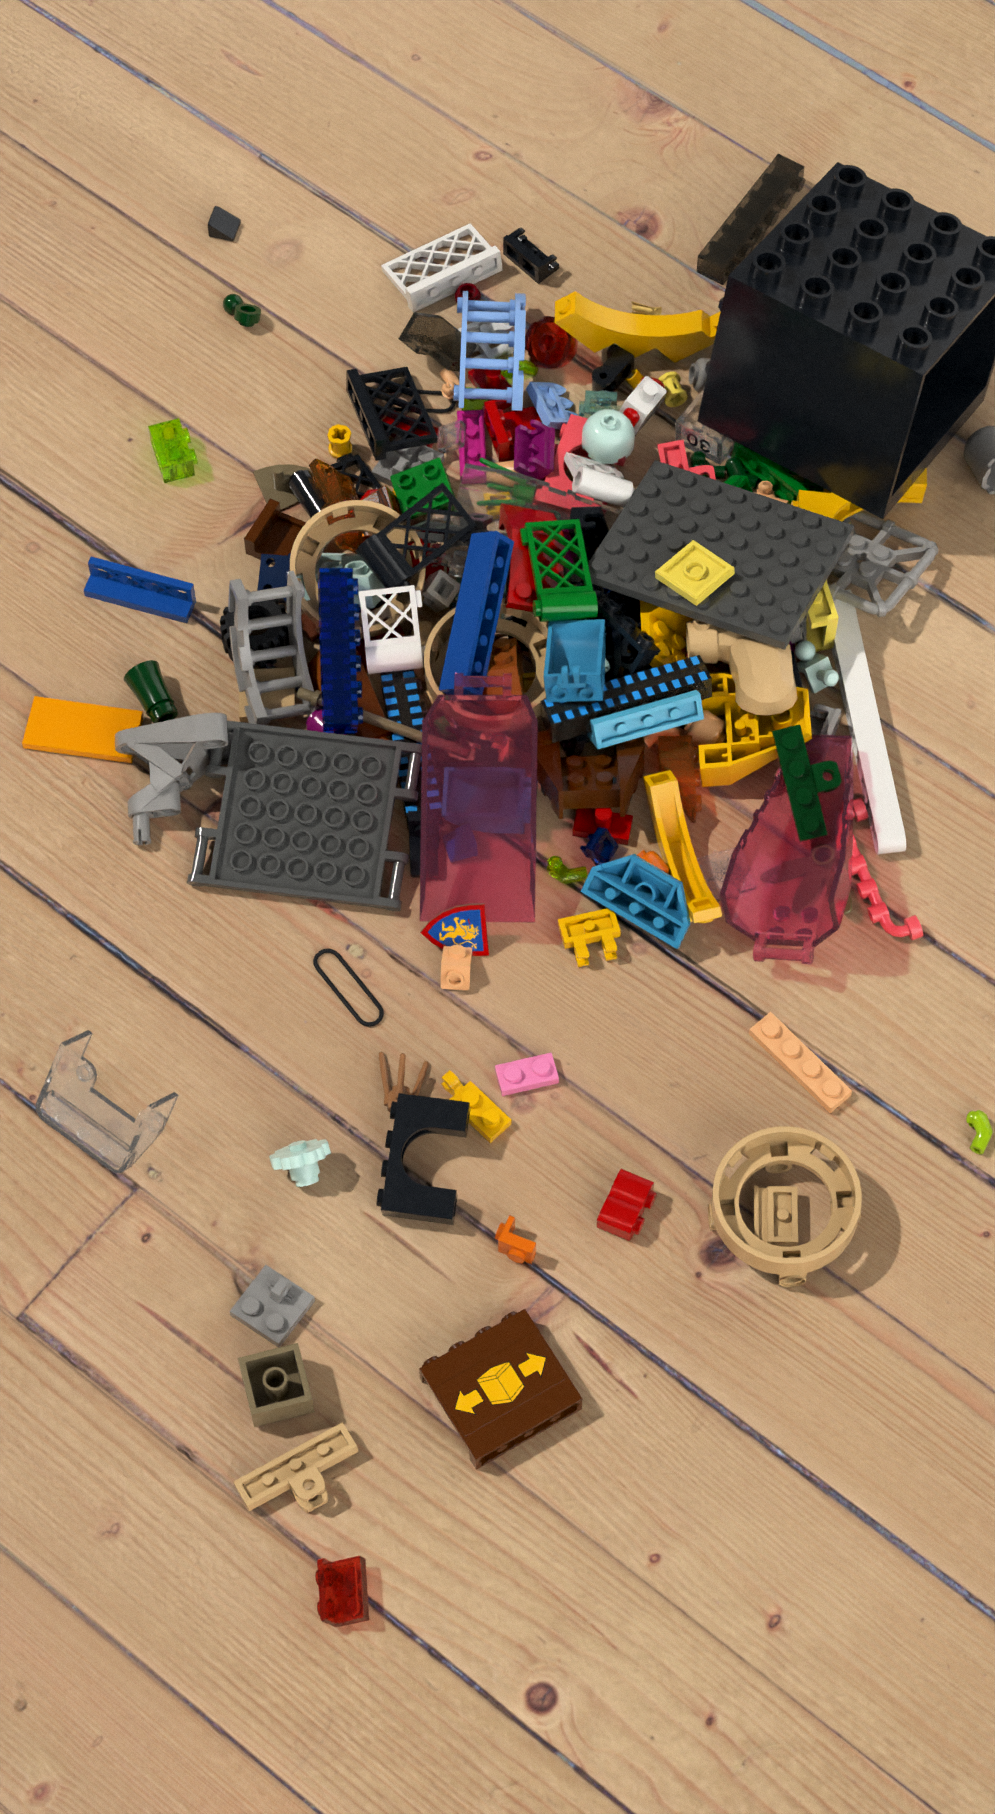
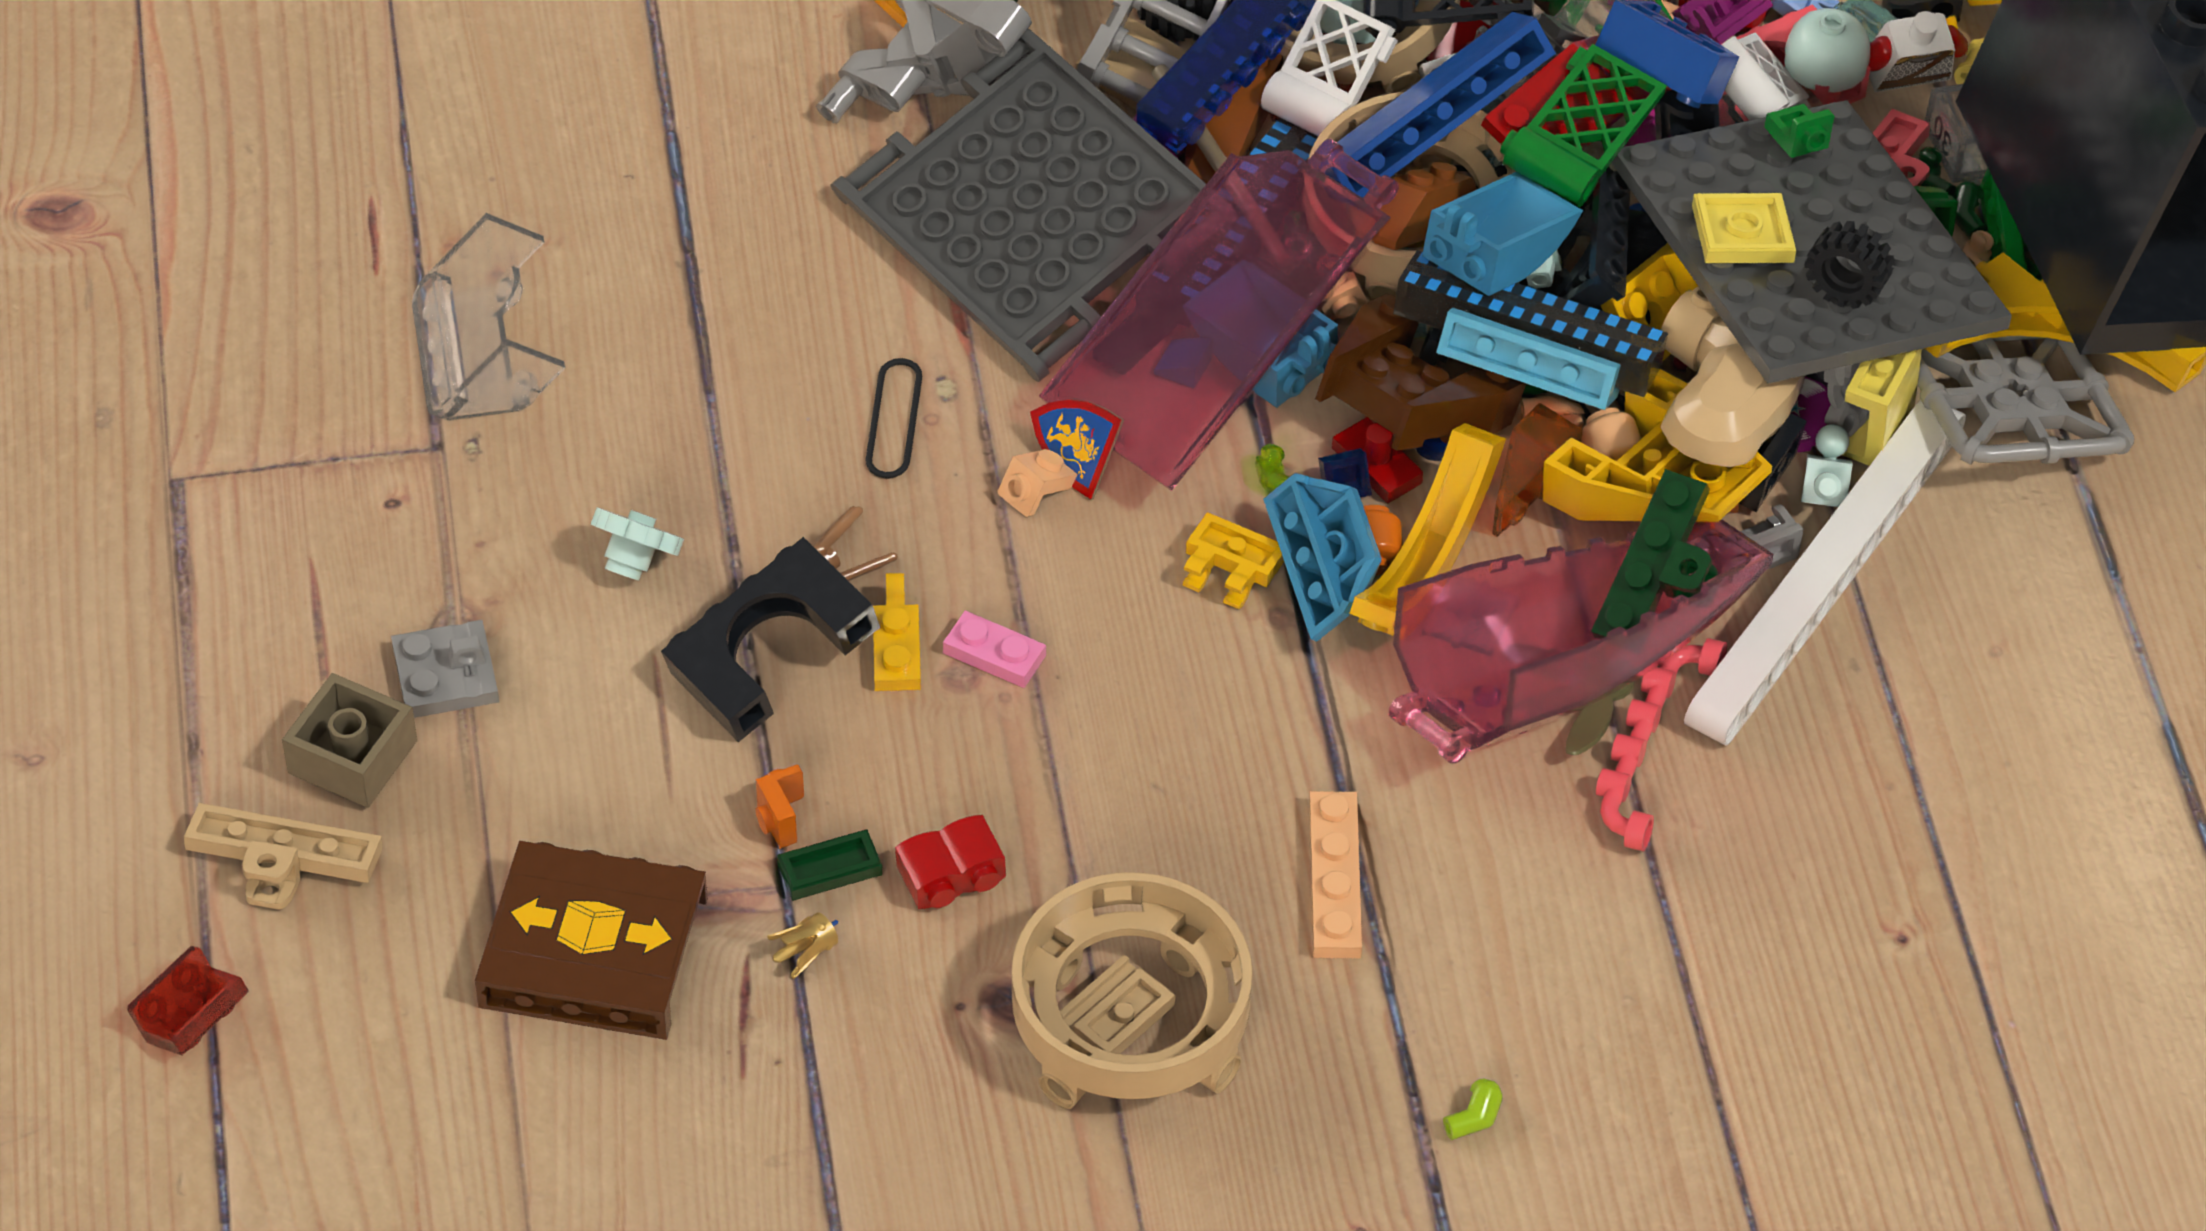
camera: 40 degrees right, 10 degrees down
(561, 499) = (1668, 51): none -> blue wedge
(566, 1253) = (829, 864): none -> dark green tile
(600, 1299) = (812, 935): none -> pearl gold piece
(664, 497) = (1800, 130): none -> green bracket
(775, 558) = (1857, 247): none -> black tyre

